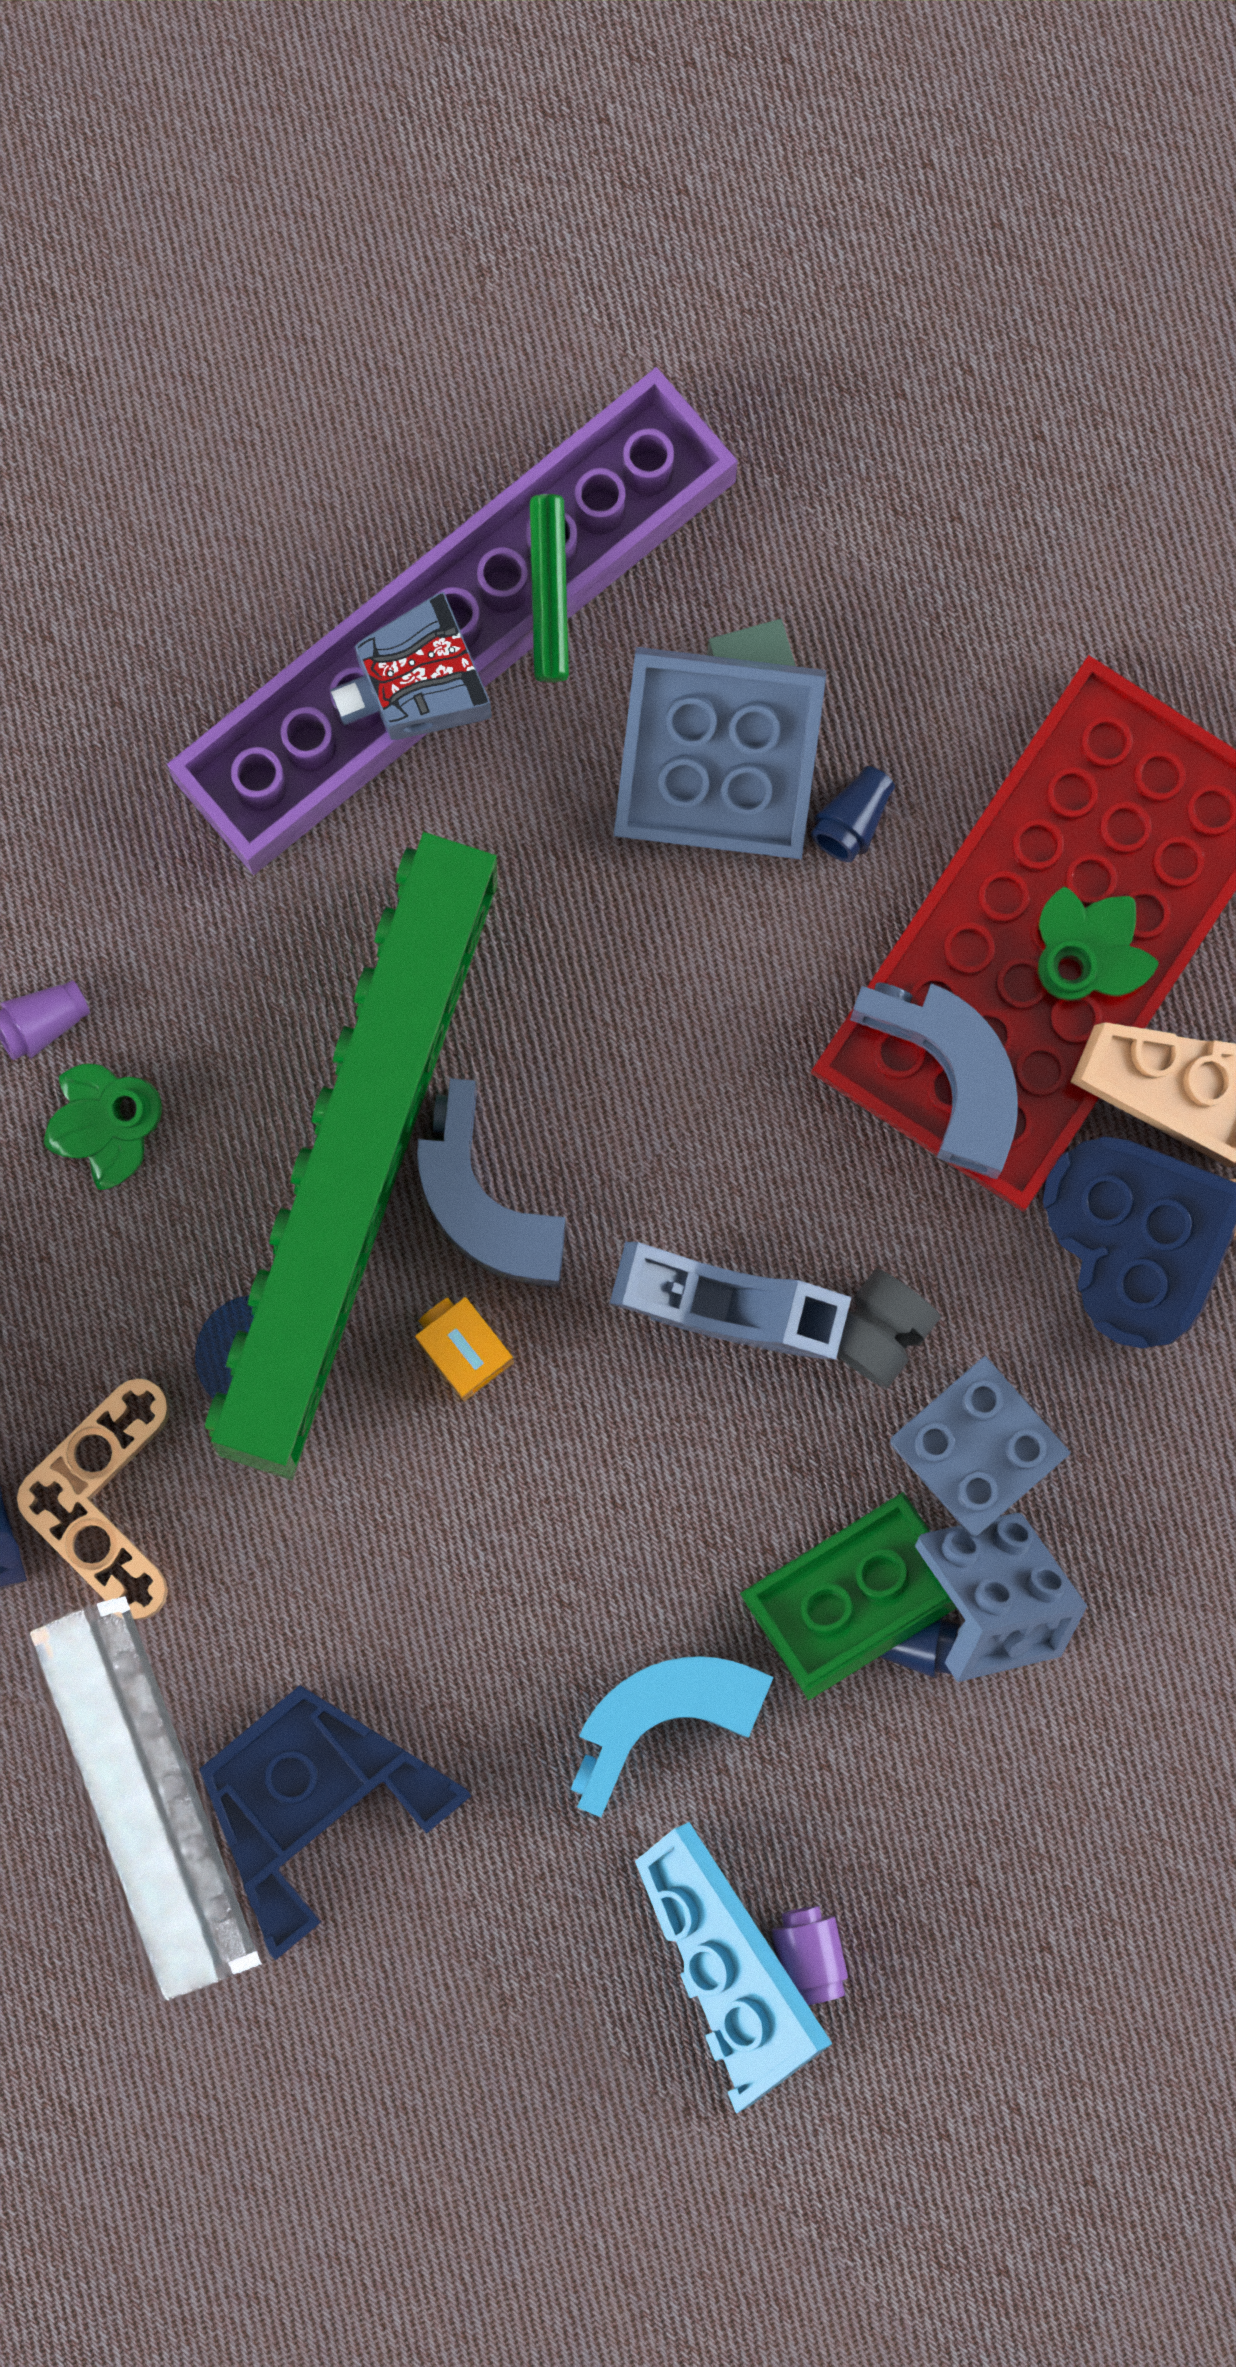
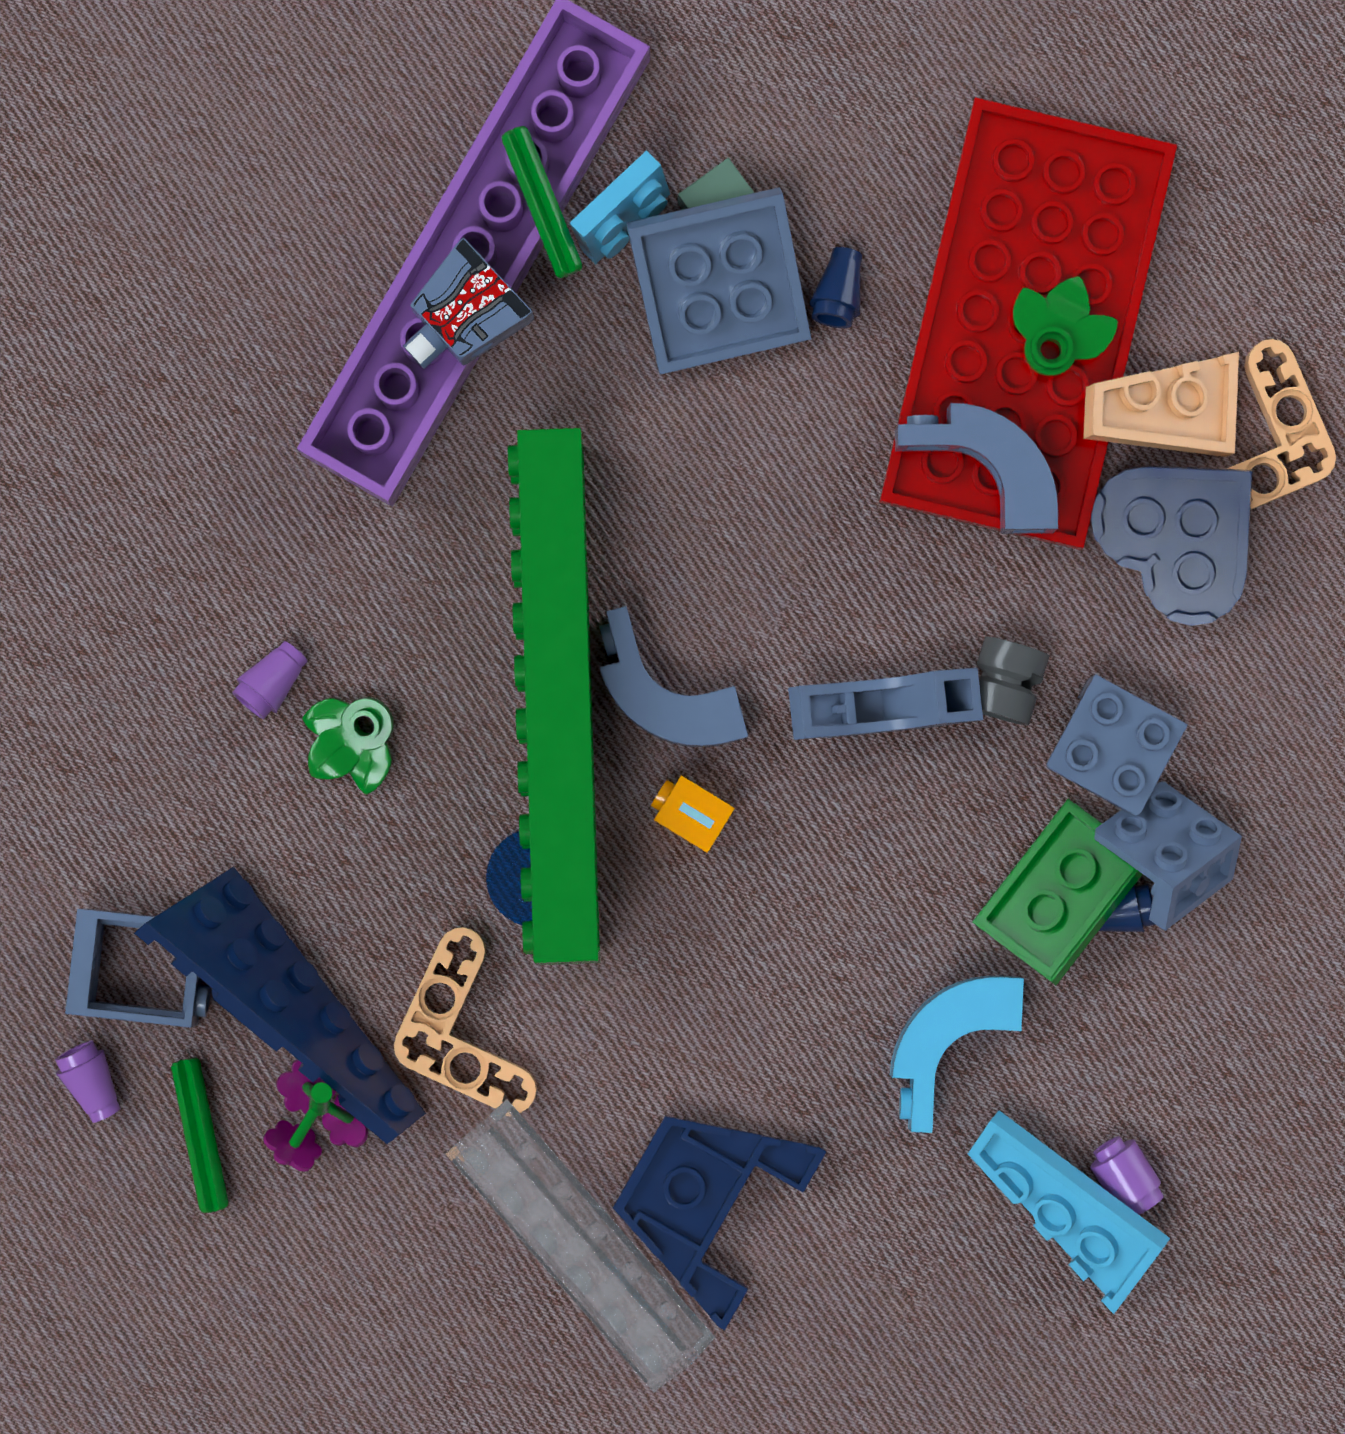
camera: 20 degrees left, 5 degrees up
(654, 618) = (632, 196): none -> medium azure plate

